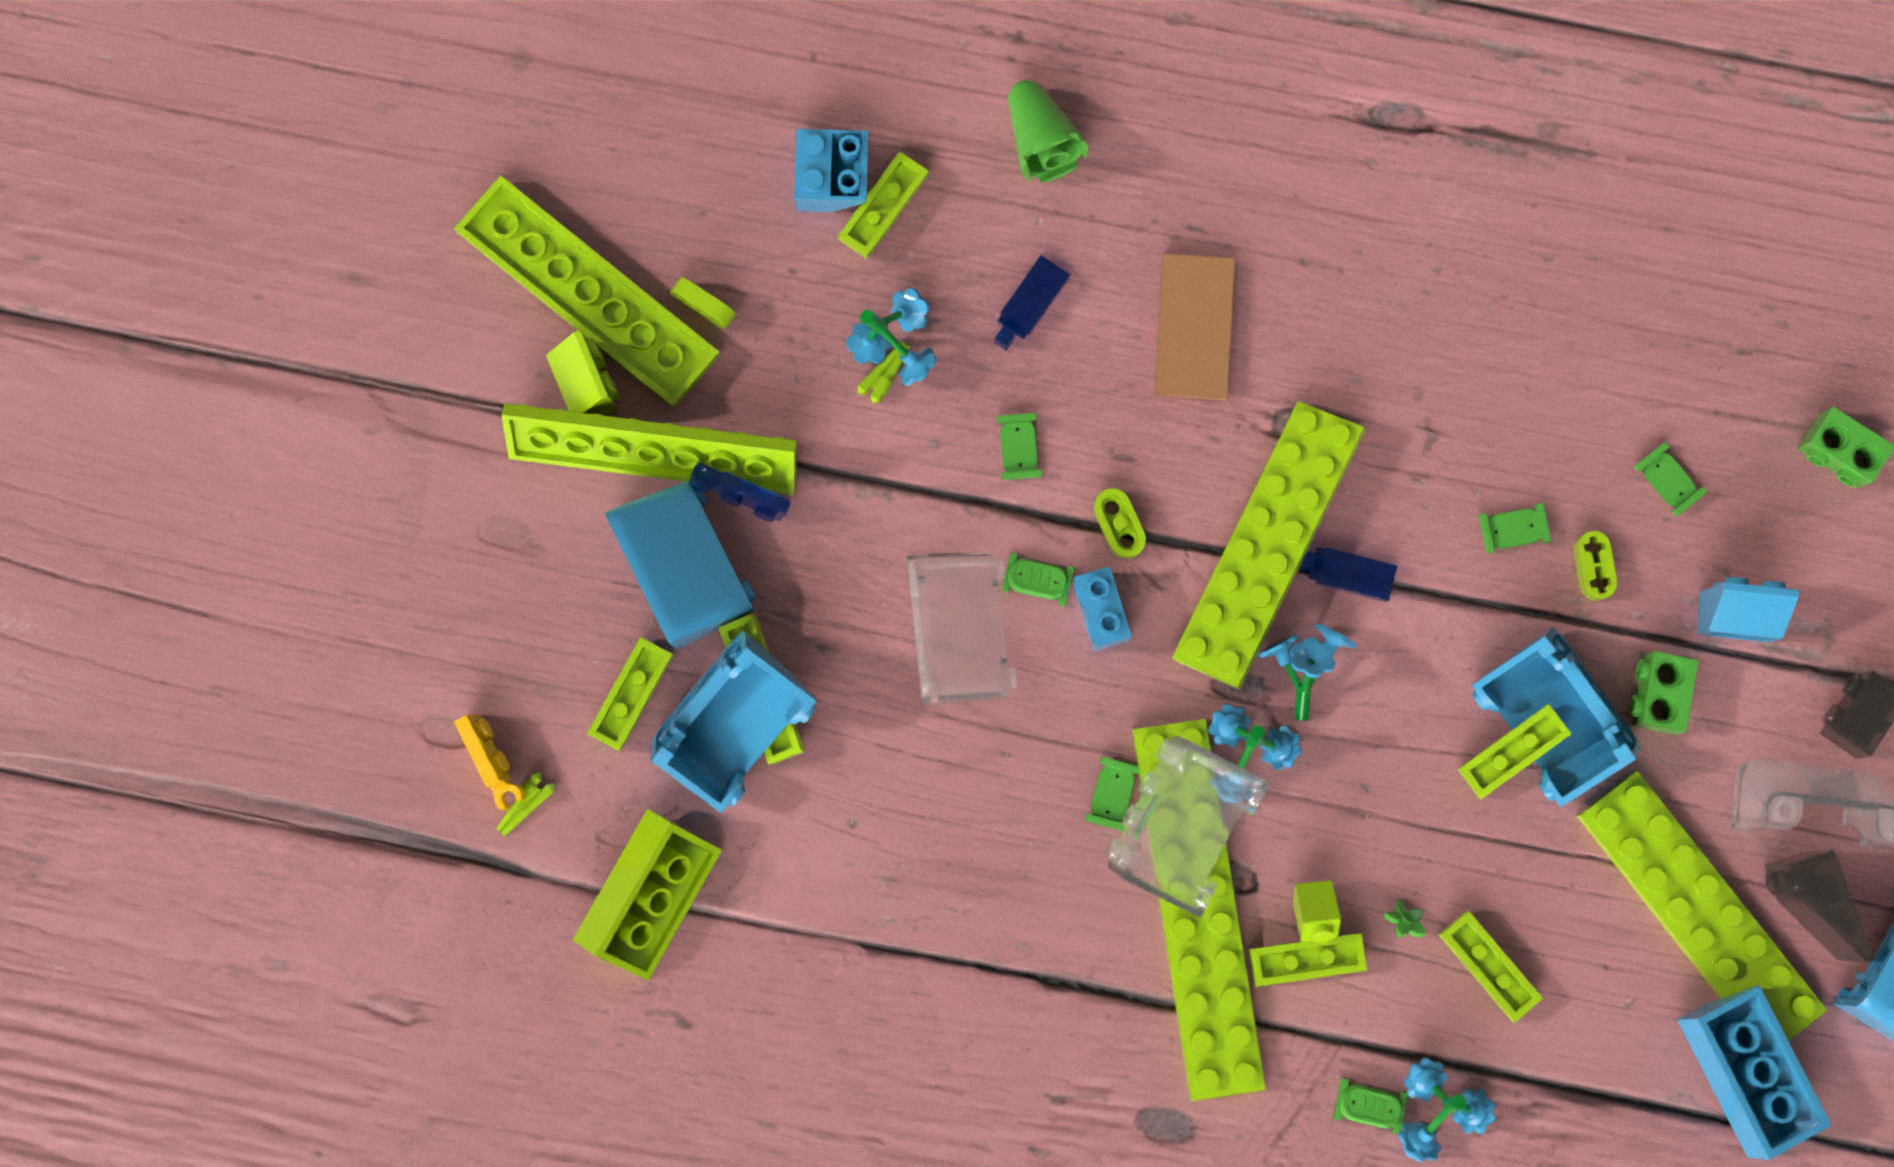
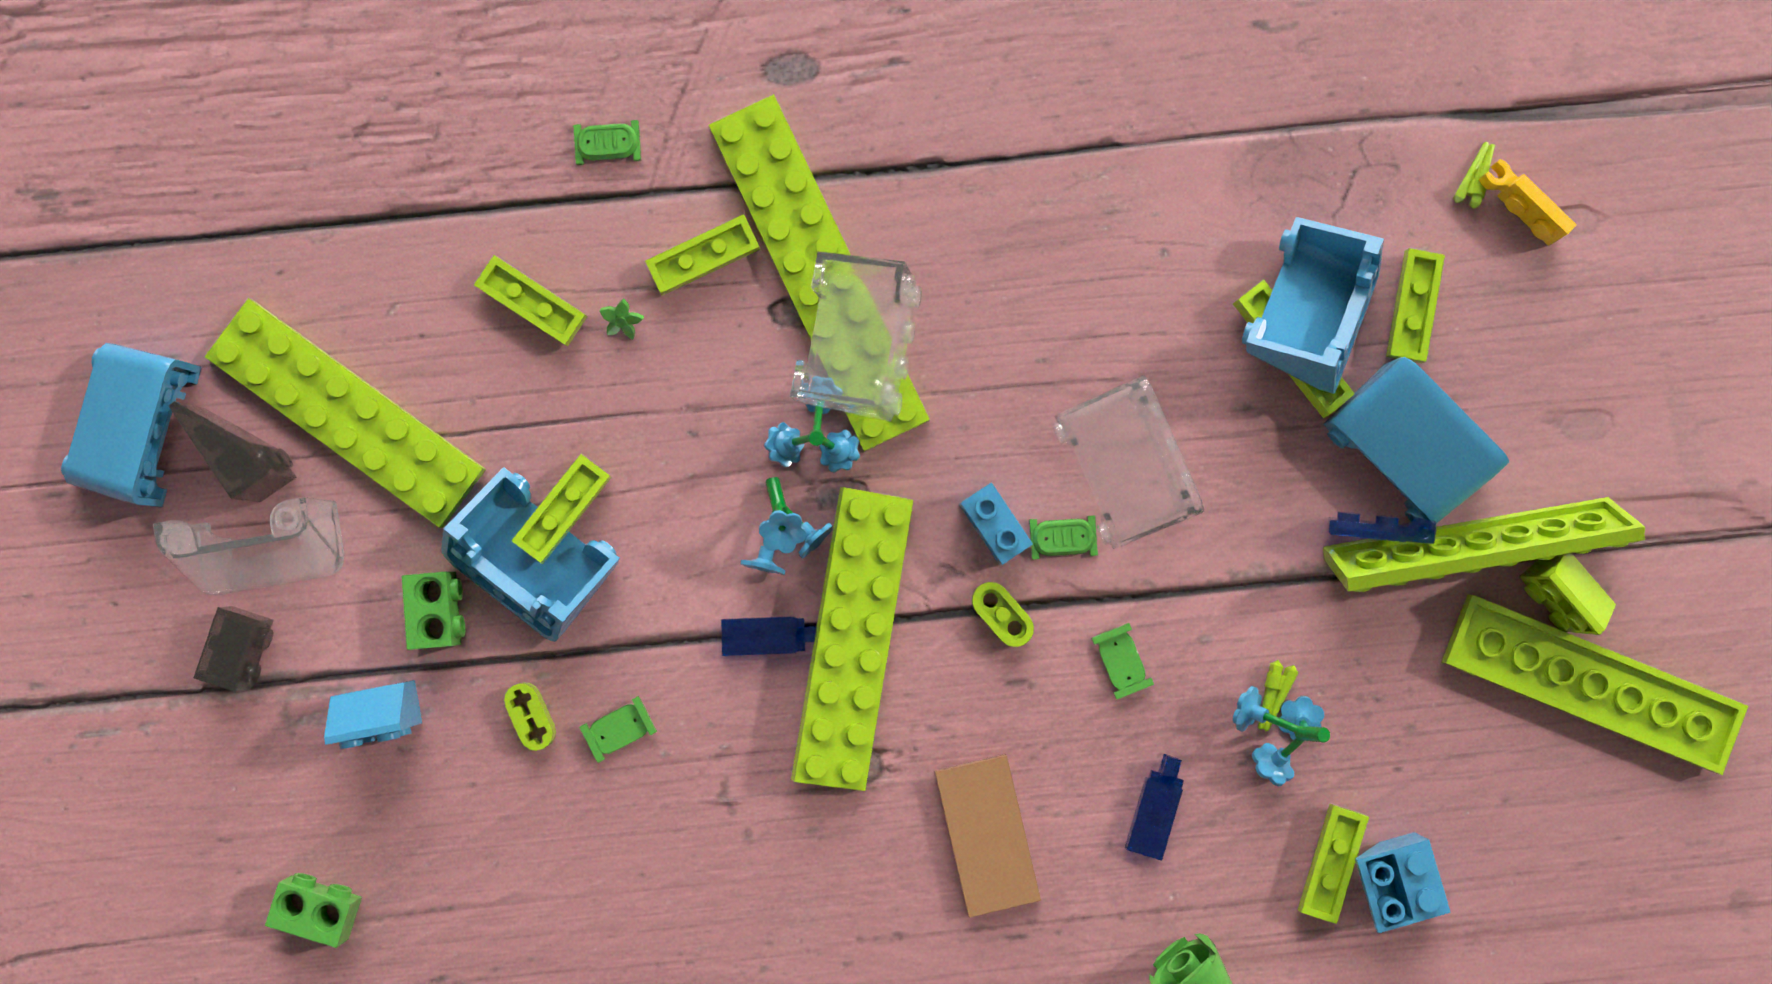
camera: 160 degrees right, 5 degrees up
(647, 895) = (1336, 124): lime slope -> none
(703, 303) = (1477, 707): lime beam -> none
(1112, 793) = (931, 354): bright green piece -> none
(1316, 911) = (707, 298): lime brick -> none
(1471, 1110) = (511, 161): dark azure plant -> none
(1669, 479) = (479, 825): bright green piece -> none
(1754, 1073) = (258, 274): dark azure slope -> none

